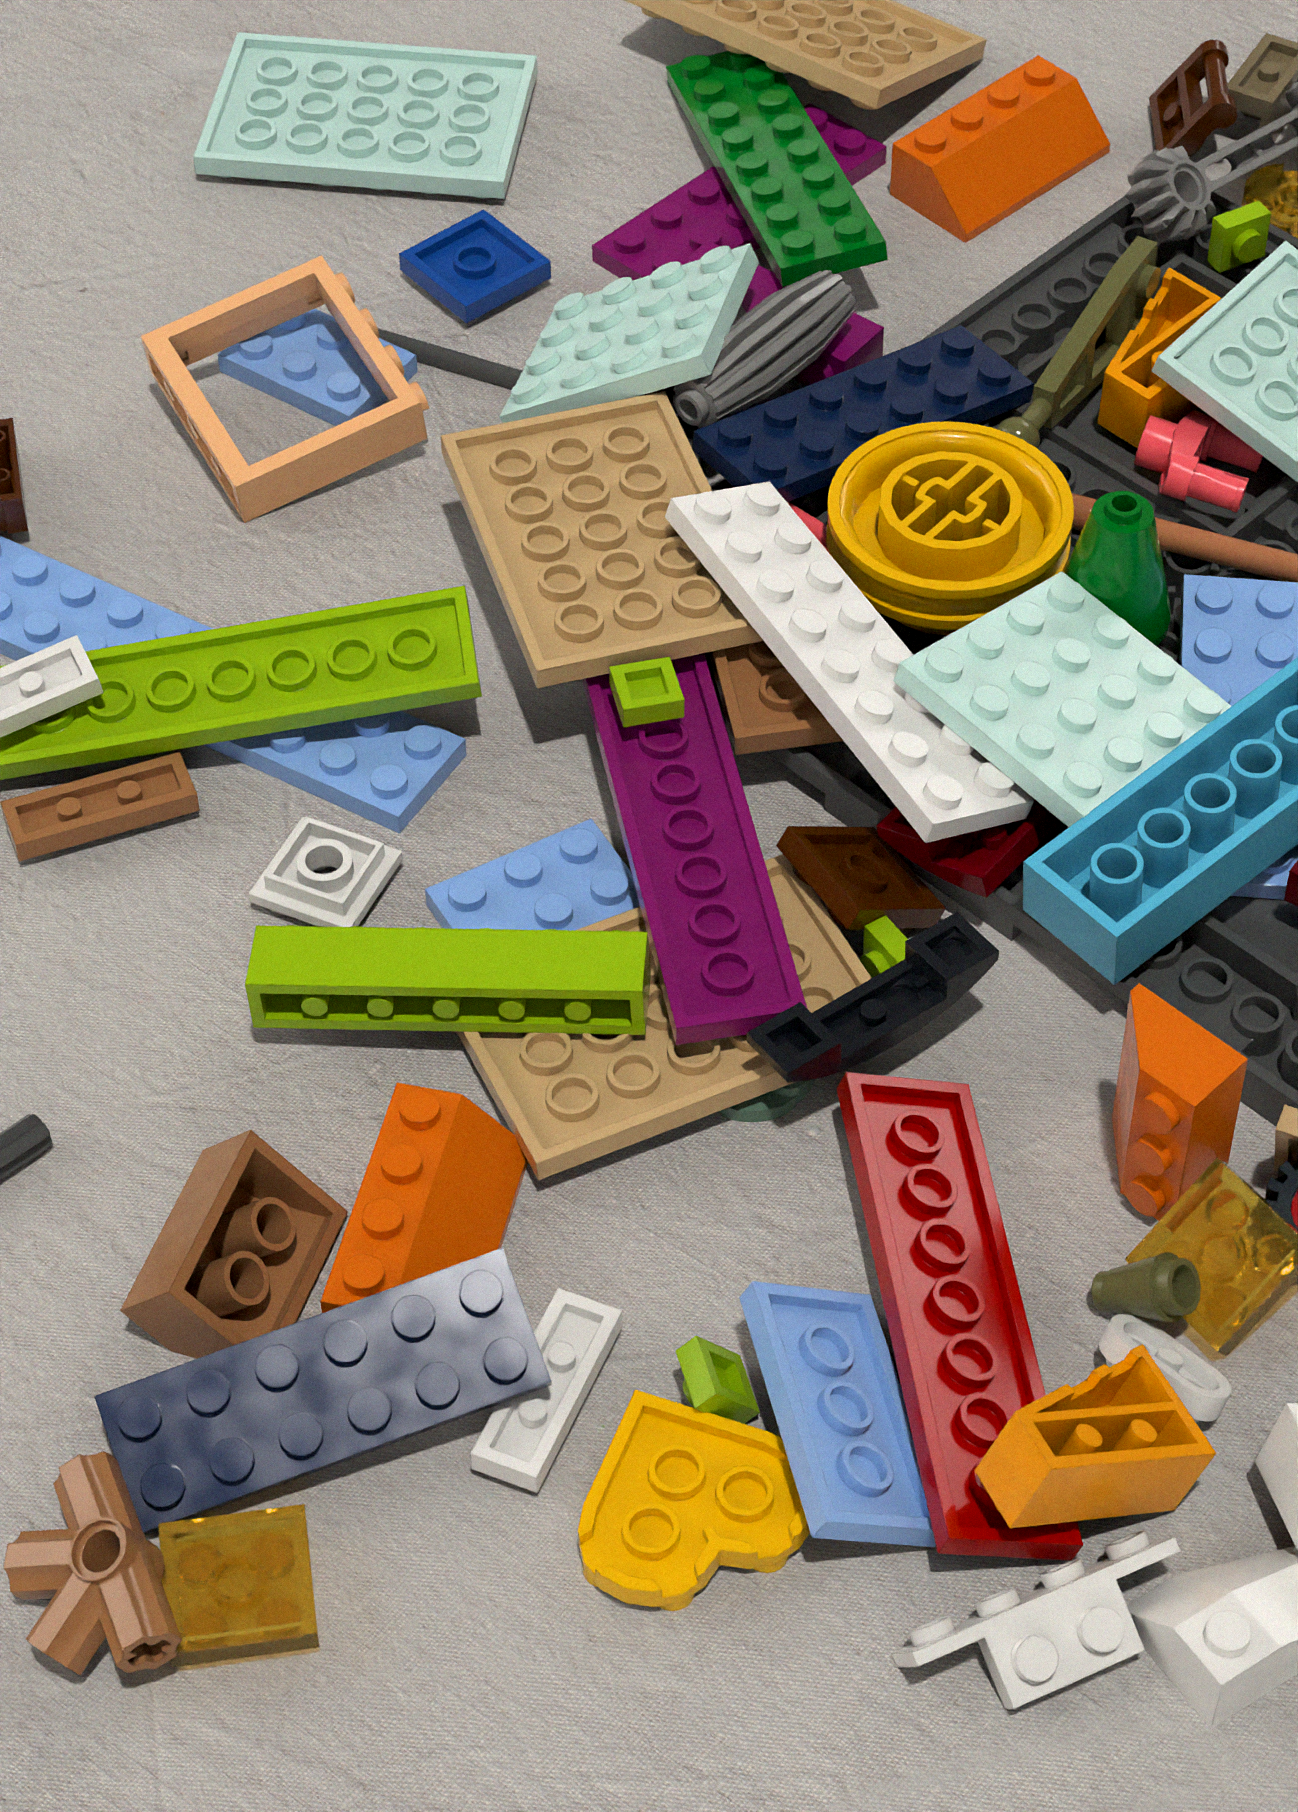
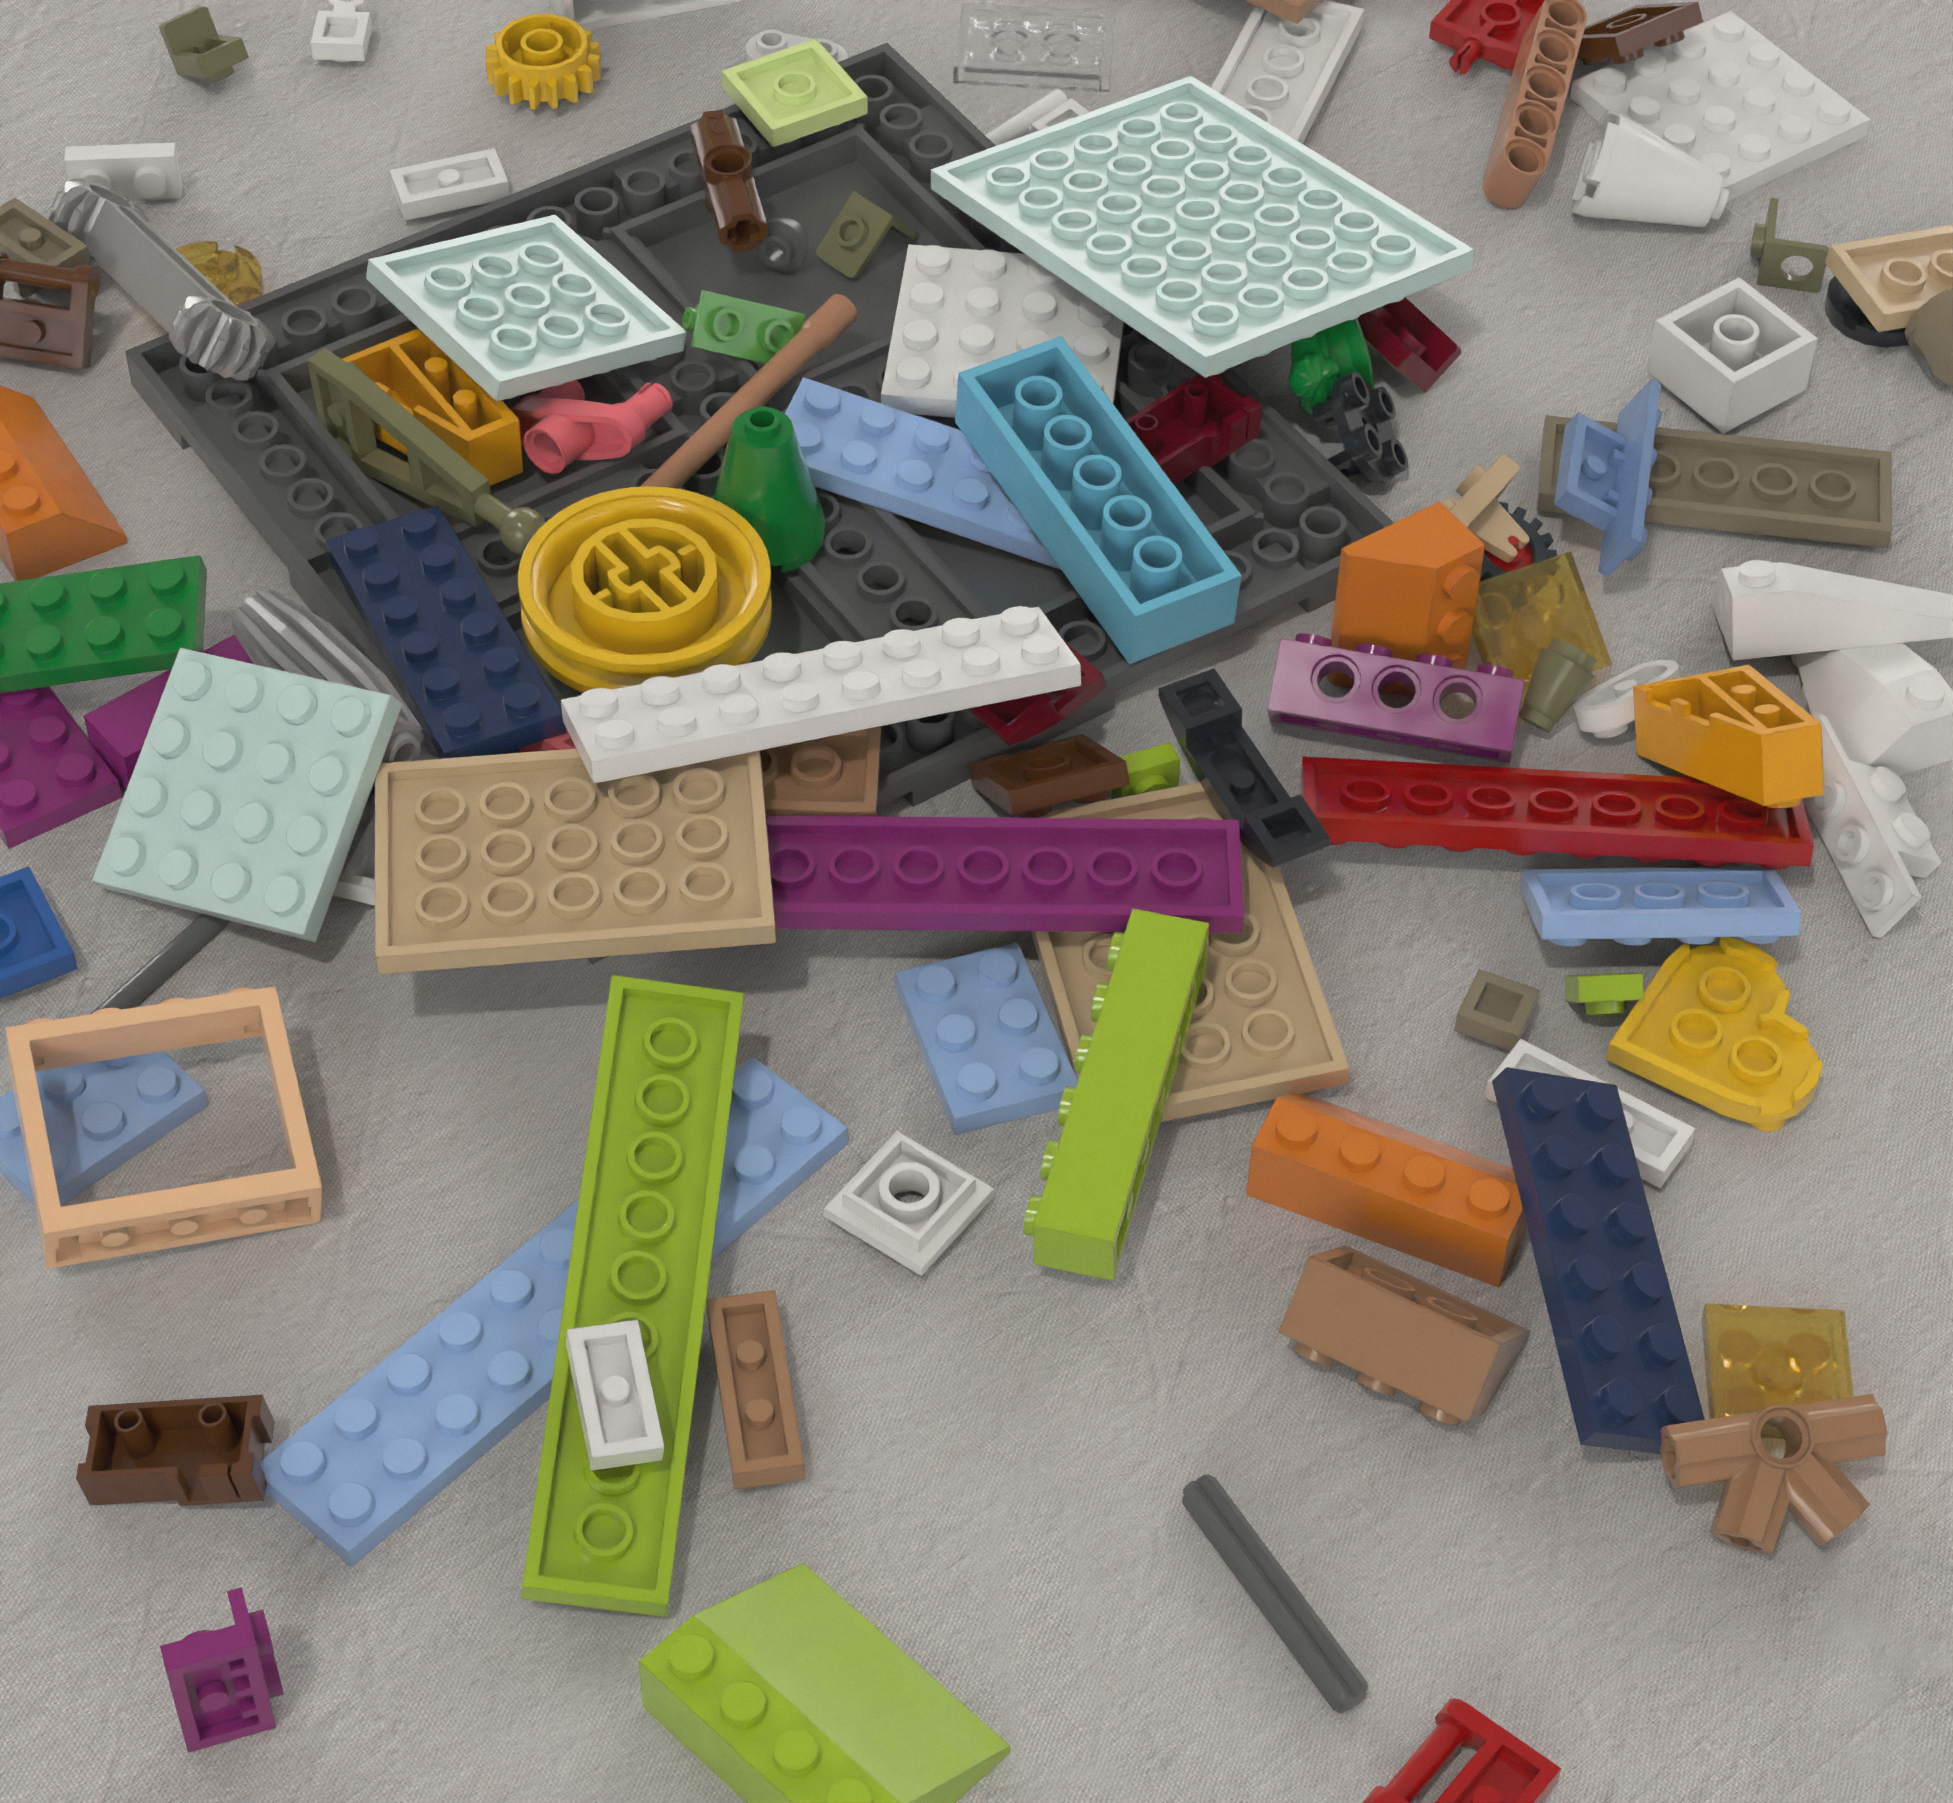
camera: 80 degrees left, 0 degrees up
(646, 692) = (816, 853): lime plate -> none
(666, 1294) = (1496, 1010): none -> dark tan plate
(1060, 695) = (928, 551): light aqua plate -> none
(1065, 1147) = (1422, 724): none -> magenta brick
(1239, 236) = (292, 313): lime plate -> none

